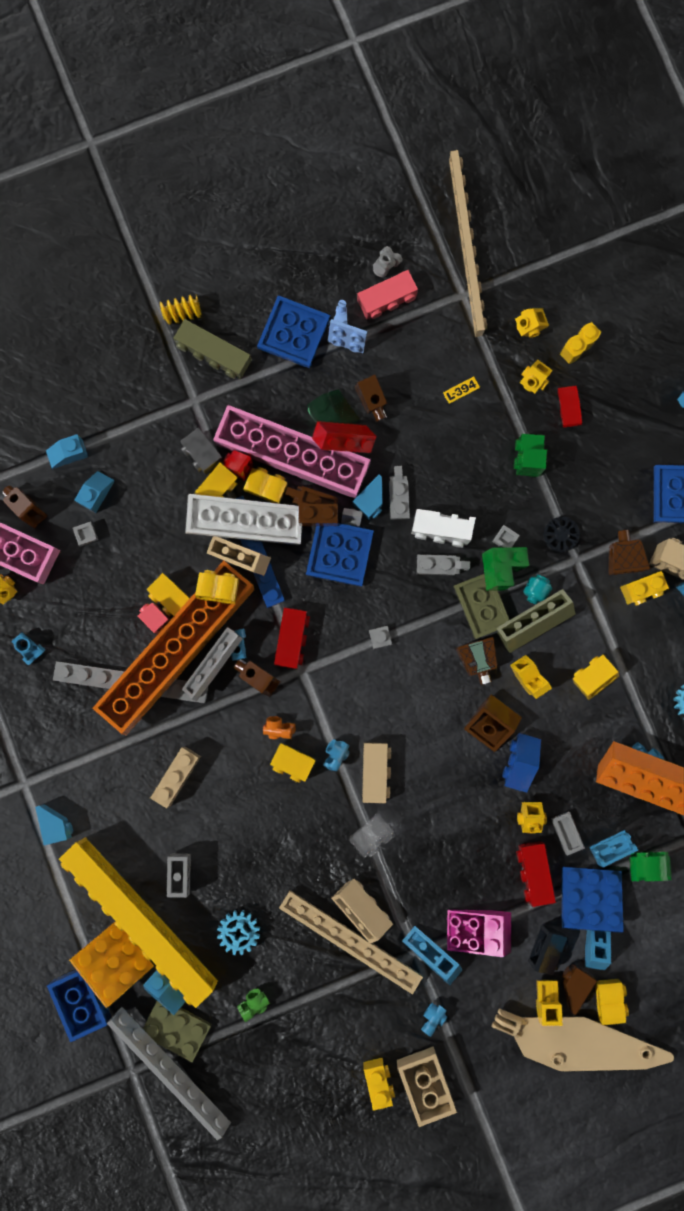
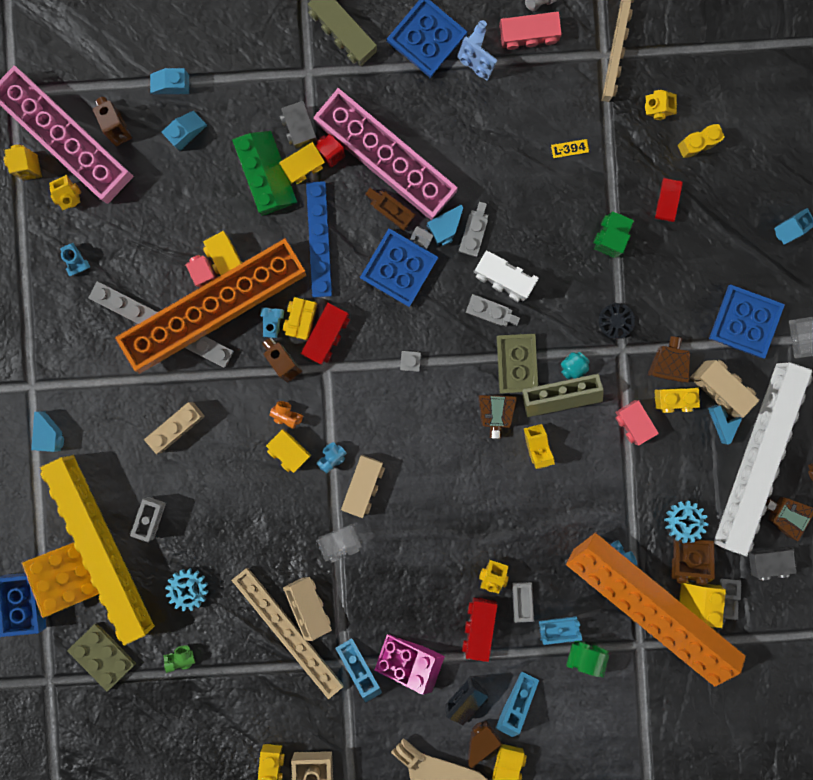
camera: 15 degrees right, 5 degrees up
(85, 534) = (162, 168): light grey plate -> none
(164, 993) = (99, 620): dark azure slope -> none
(169, 1073) = (82, 694): light grey plate -> none
(171, 493) = (263, 172): none -> green slope
(212, 664) = (242, 333): light grey plate -> none
(217, 587) = (269, 262): yellow brick -> none
(238, 555) = (301, 238): tan brick -> none
(243, 519) = (317, 205): white plate -> none
(263, 632) = (300, 319): none -> yellow brick
(265, 486) = (350, 179): yellow brick -> none
(318, 514) = (389, 224): reddish brown brick -> none
(332, 408) = (437, 130): clear green slope -> none
(344, 437) = (439, 157): red brick -> none
(369, 389) = (480, 118): reddish brown torso -> none
(435, 1017) = (343, 725): dark azure plate -> none
(493, 723) = (488, 477): reddish brown slope -> none
(500, 564) = (547, 330): green brick -> none
(505, 537) = (562, 307): light grey plate -> none
(522, 762) = (503, 523): blue brick -> none
(535, 377) = (645, 160): yellow brick -> none
(547, 1003) = (449, 749): yellow brick -> none
(592, 899) = (523, 670): blue plate -> none
(595, 676) = (600, 466): yellow brick -> none
(614, 624) = (636, 423): none -> coral brick

